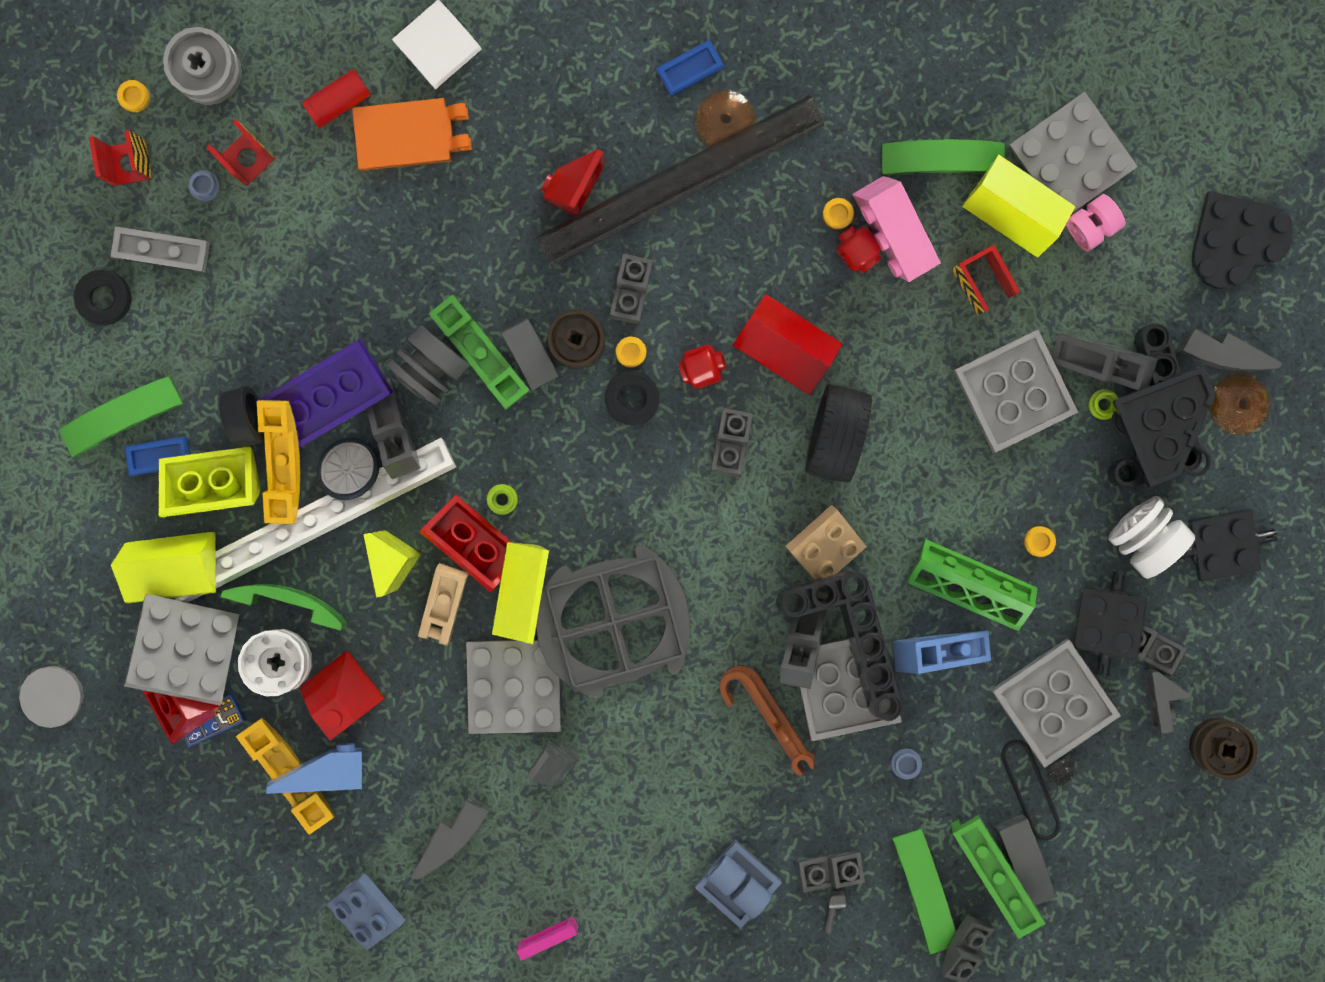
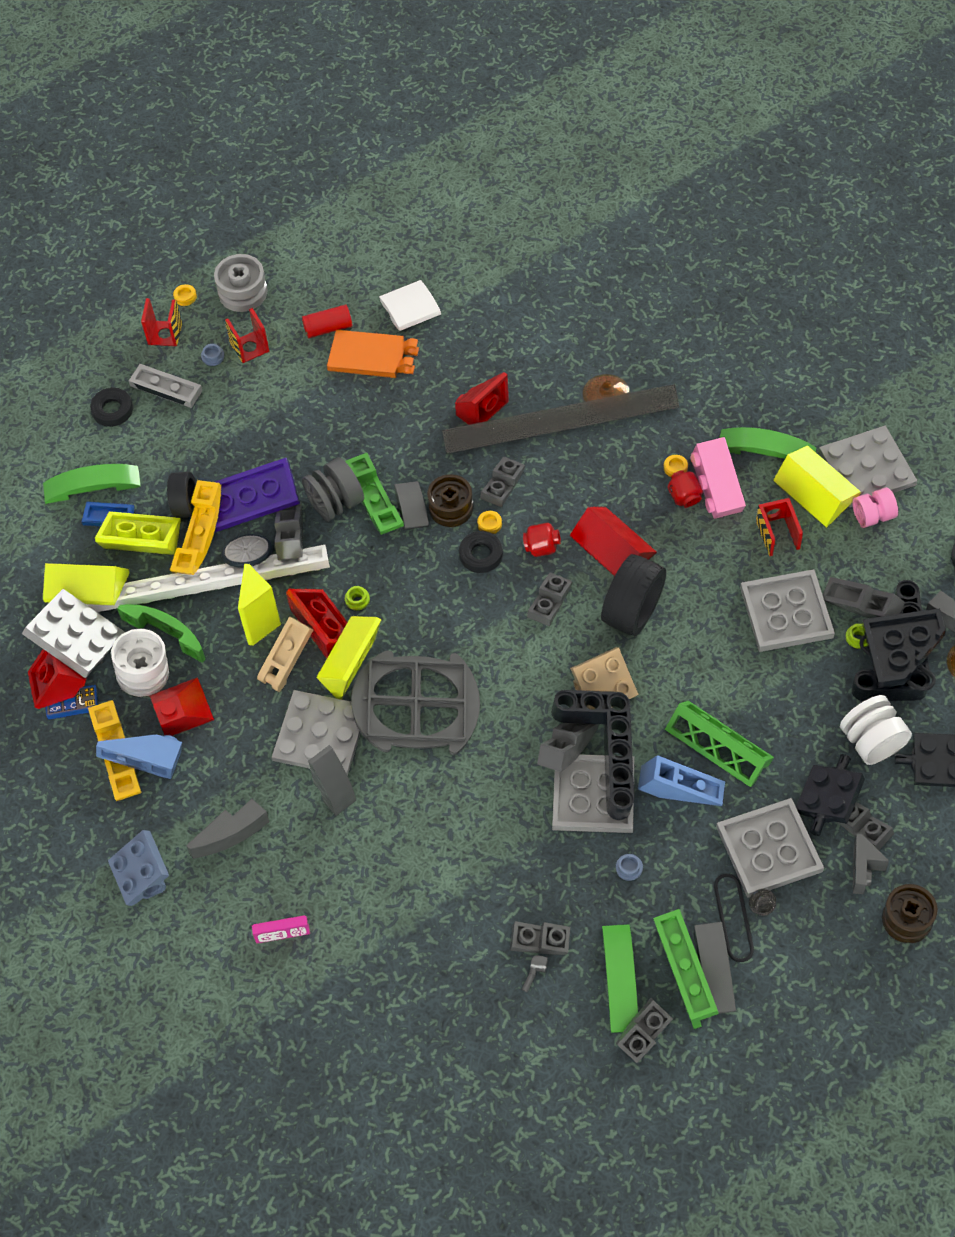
camera: 20 degrees right, 30 degrees down
(690, 68) = (589, 355): blue tile -> none
(738, 884) = (457, 926): sand blue plate -> none
(771, 712) = (524, 794): dark orange piece -> none
(1039, 541) = (783, 724): yellow tile -> none

